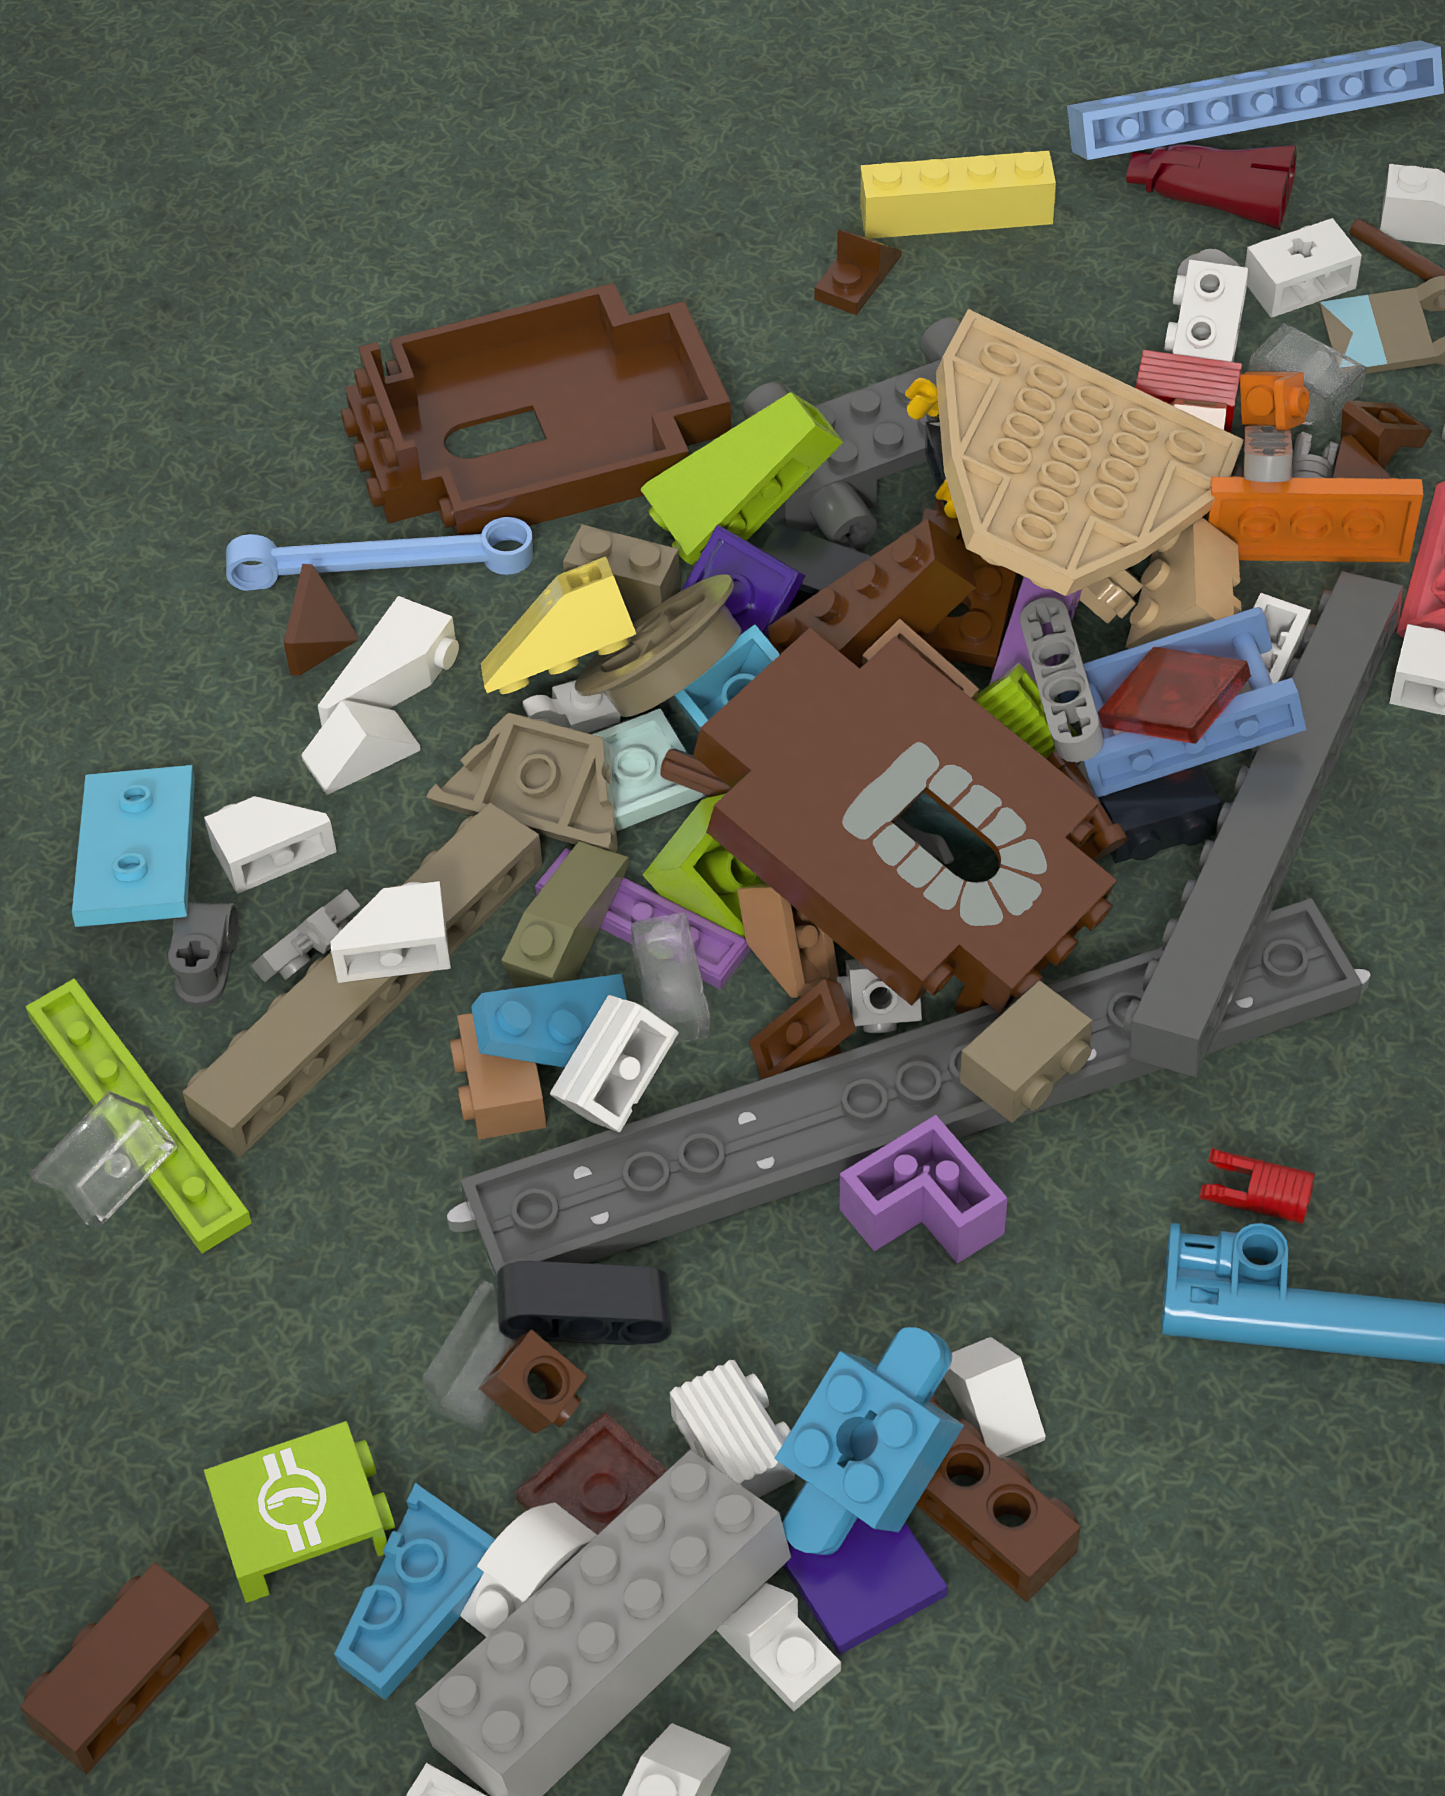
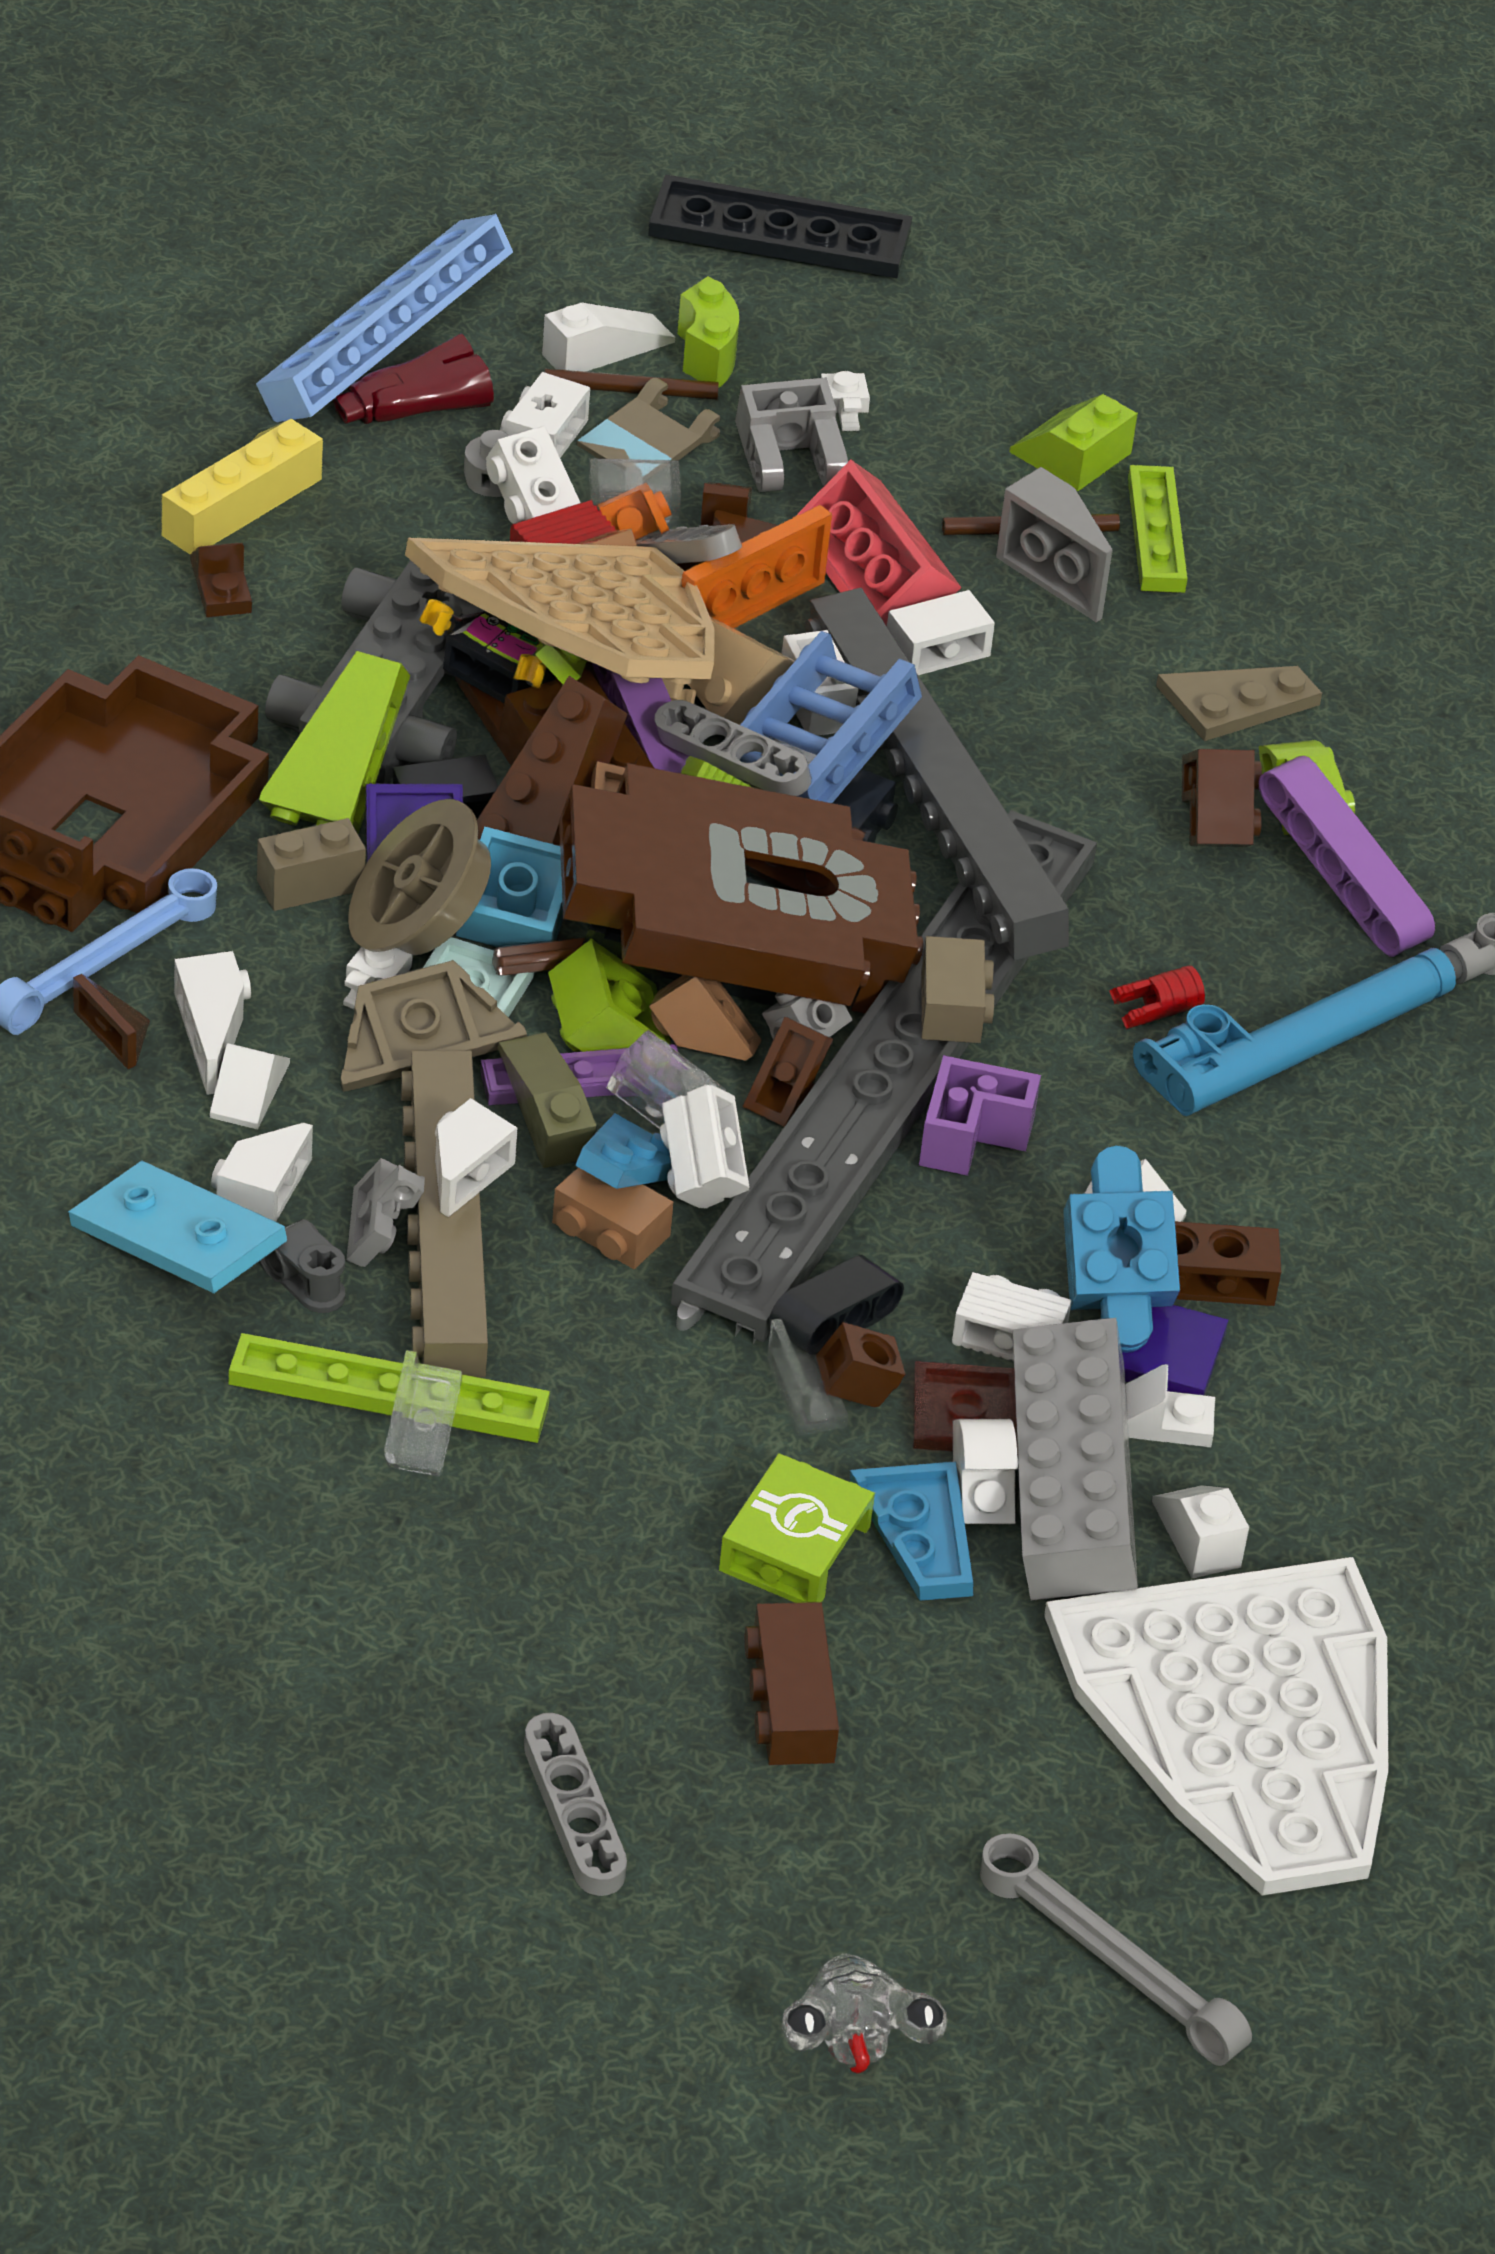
camera: 50 degrees left, 10 degrees down
(568, 620) = (329, 909): light yellow slope -> none
(1174, 694) = (829, 712): clear red tile -> none

